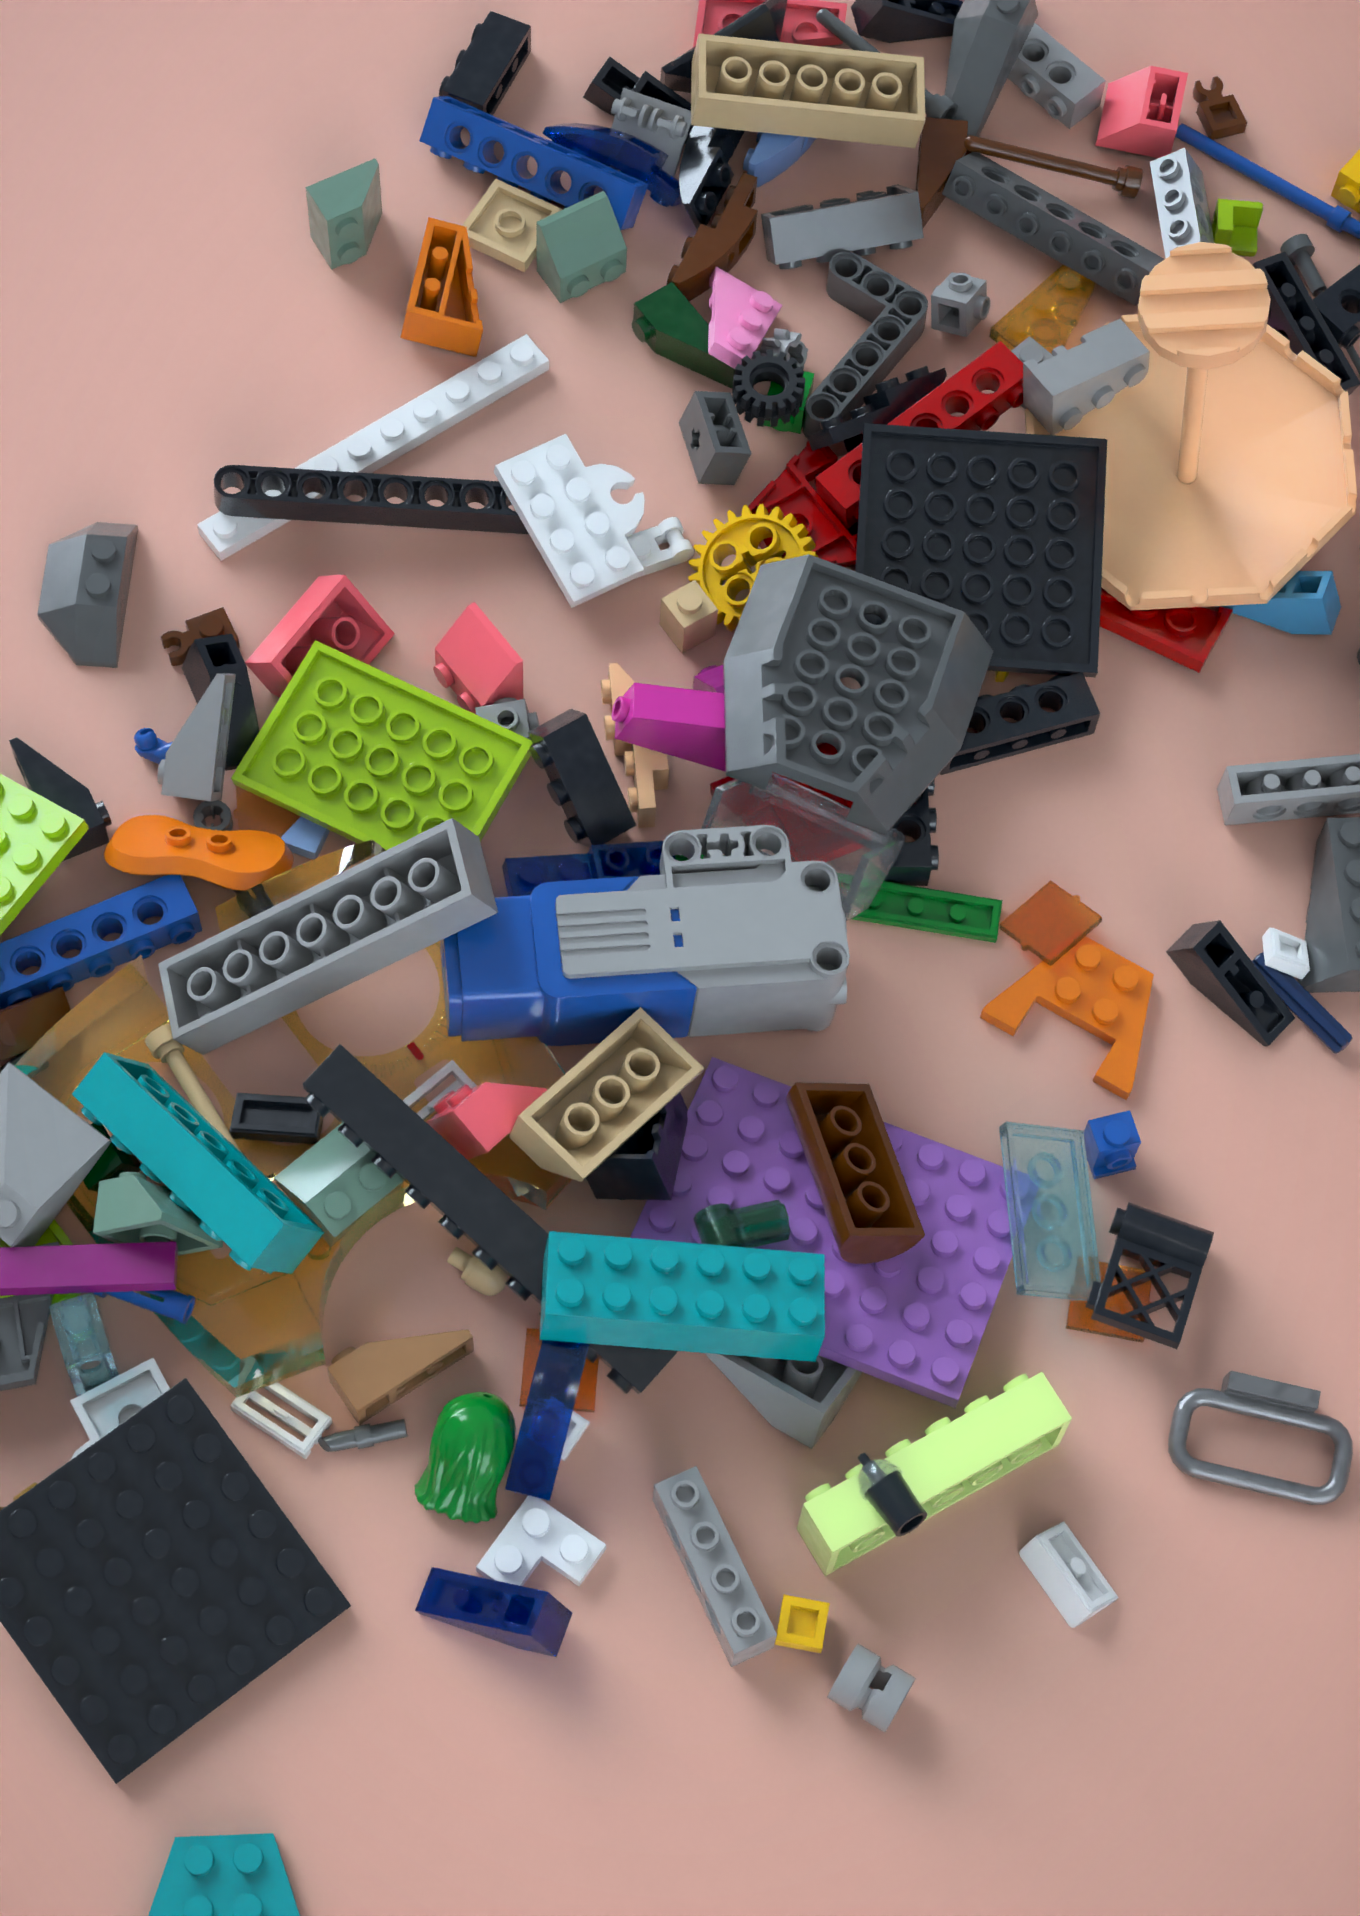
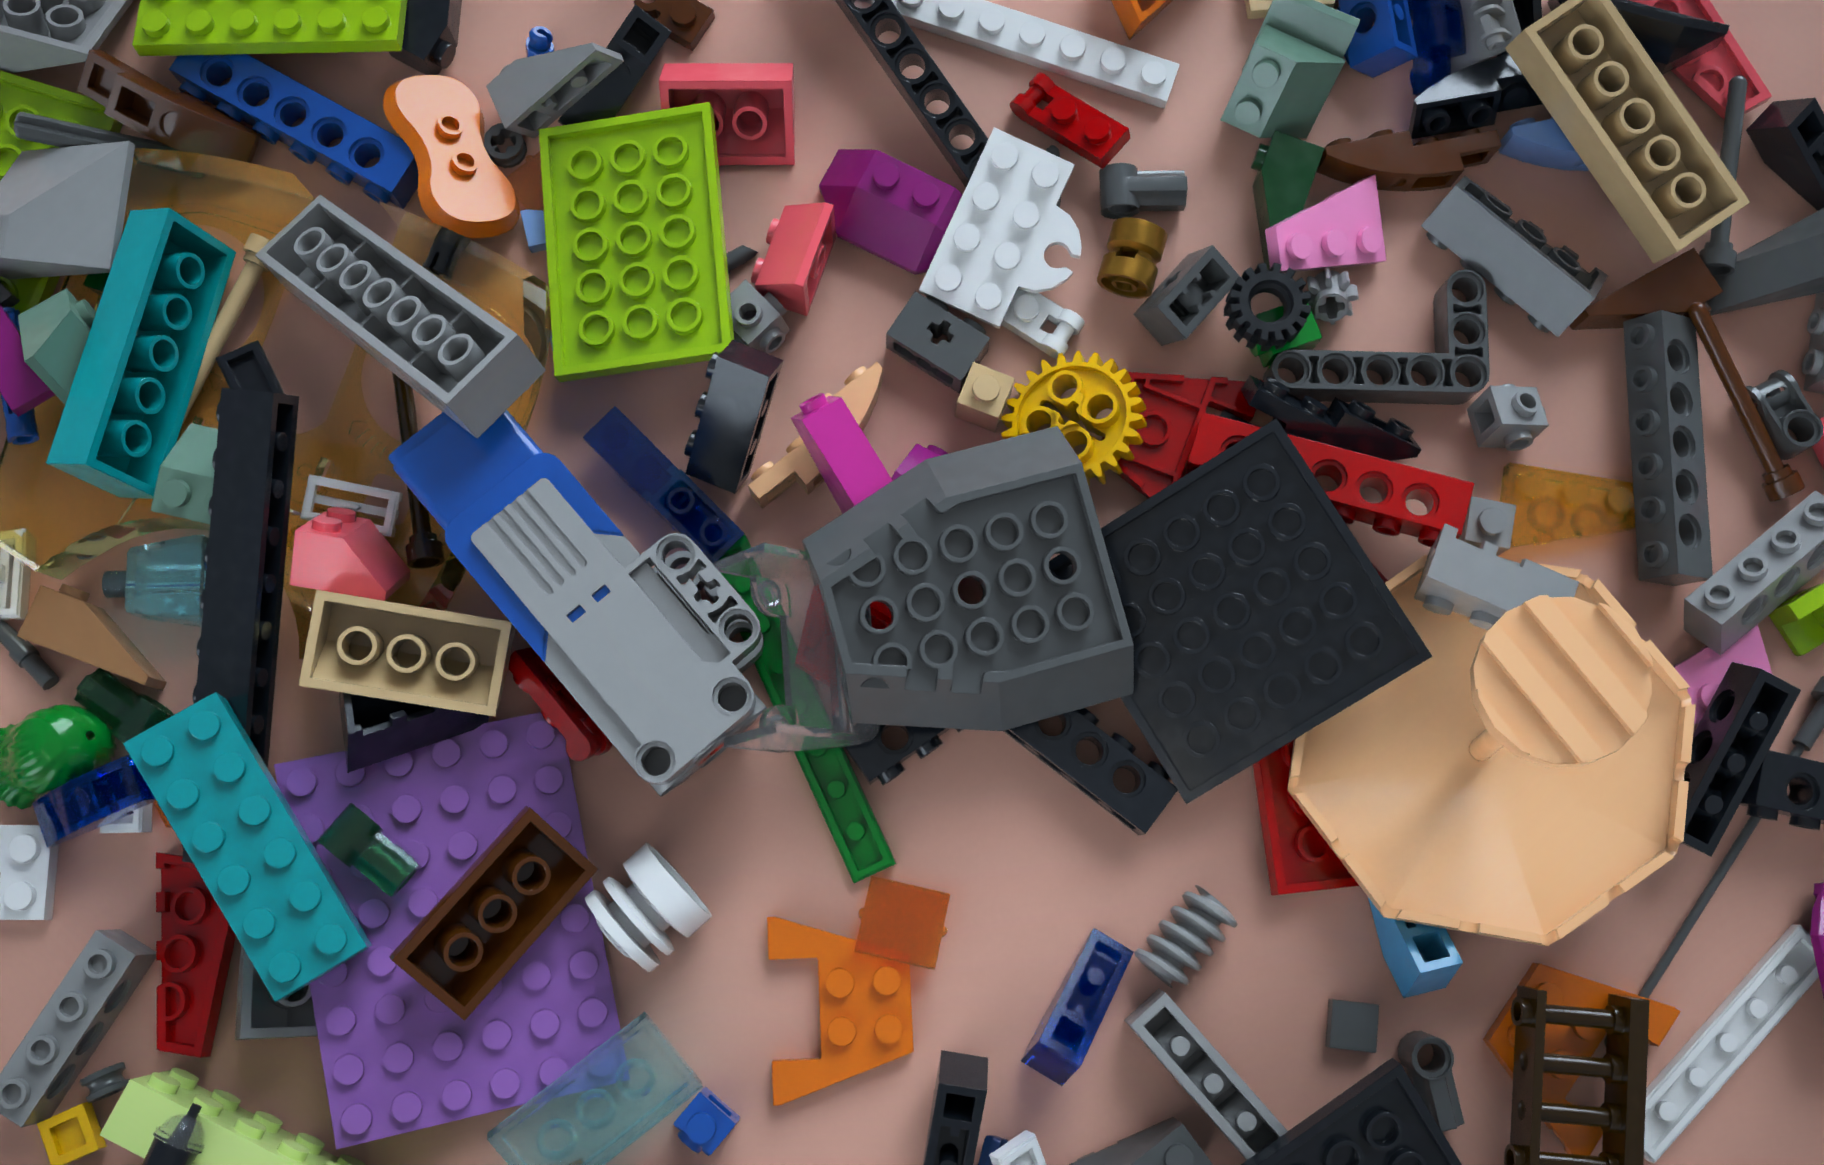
camera: 55 degrees right, 15 degrees up
(393, 1280) = (162, 580): none -> clear light blue torso
(488, 1370) = (120, 705): none -> clear green piece
(498, 574) = (888, 207): none -> magenta wedge
(505, 1070) = (423, 546): none -> dark brown piece
(514, 428) = (1070, 121): none -> red plate
(601, 278) = (1282, 86): none -> sand green slope
(602, 425) = (1129, 191): none -> dark grey piece
(620, 621) = (950, 359): none -> dark grey brick
(657, 457) = (1130, 264): none -> pearl gold wheel
(700, 1430) = (194, 959): none -> red wing
(717, 1051) = (558, 705): none -> red plate
(777, 1571) = (105, 1082): none -> dark grey bush
(920, 1074) = (647, 908): none -> white wheel
(1082, 144) = (1784, 412): none -> dark grey piece
(1193, 742) = (1185, 937): none -> light grey piece
(1198, 845) = (1077, 1008): none -> clear blue slope
(1328, 683) = (1352, 1025): none -> dark grey tile

